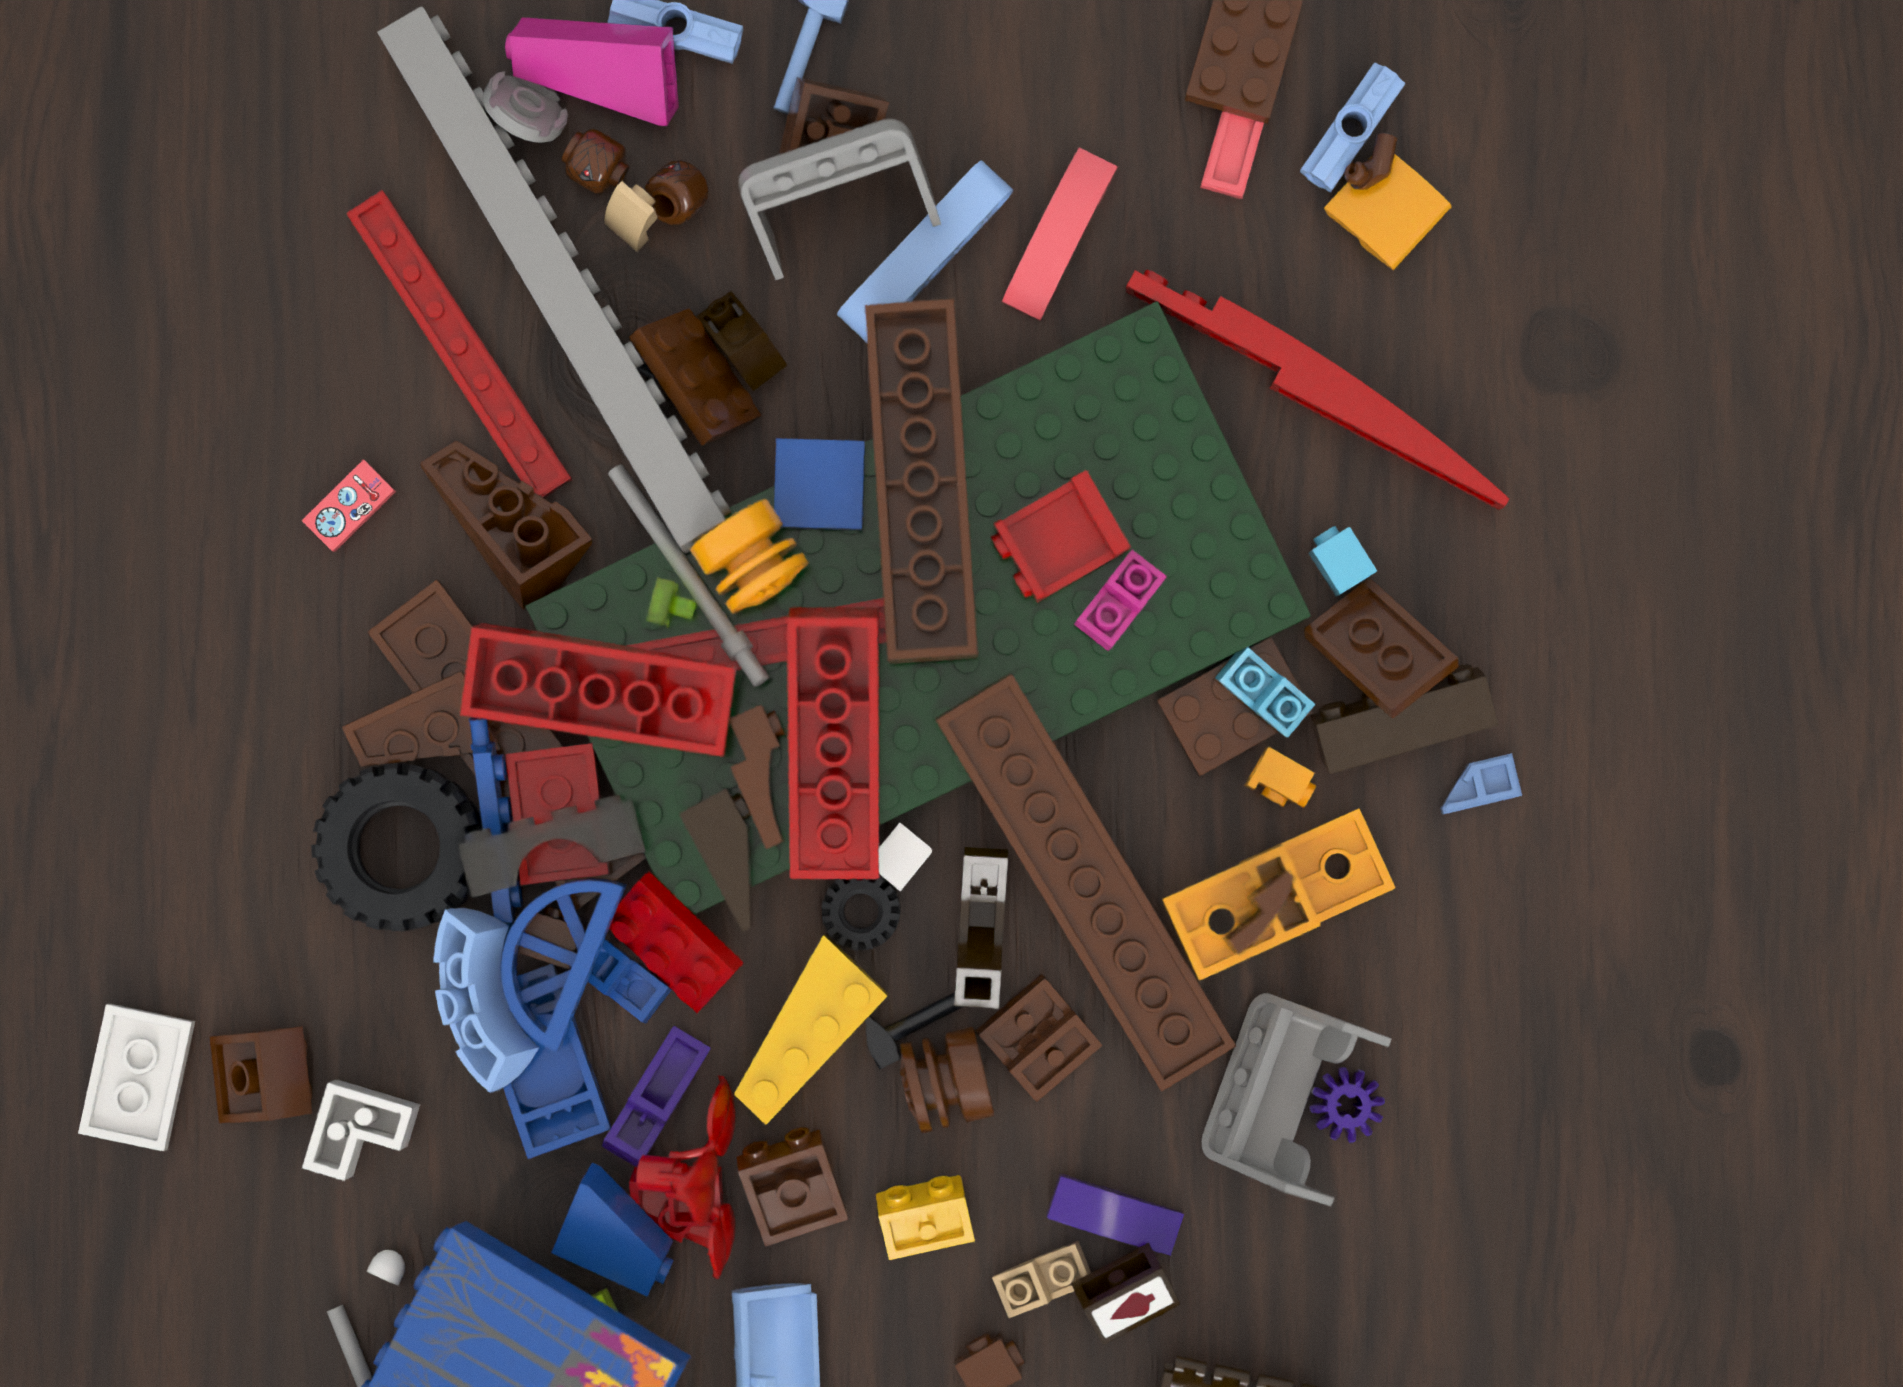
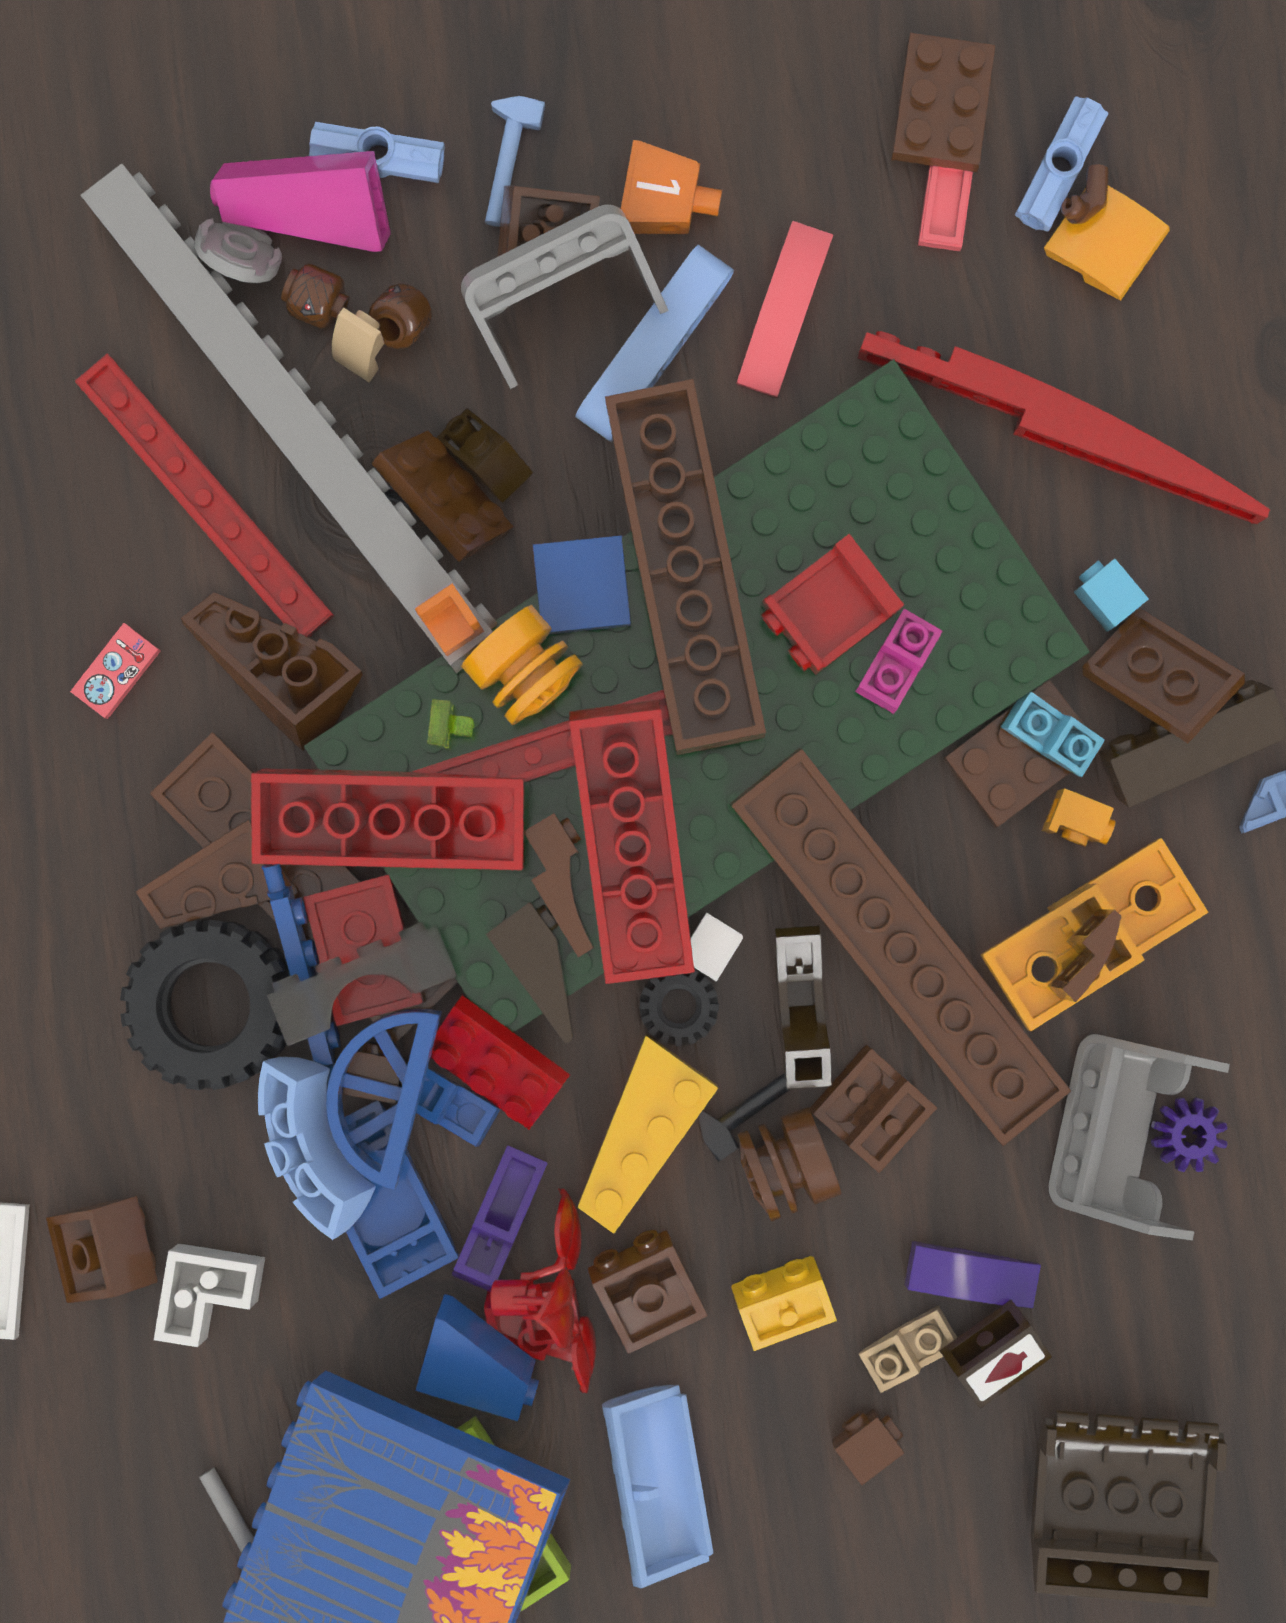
camera: 10 degrees left, 0 degrees up
(388, 1266) = (254, 1424): white hinge -> none
(684, 503) = (449, 619): none -> orange panel
(734, 643) = (519, 755): light grey bar -> none
(954, 103) = (664, 191): none -> orange torso

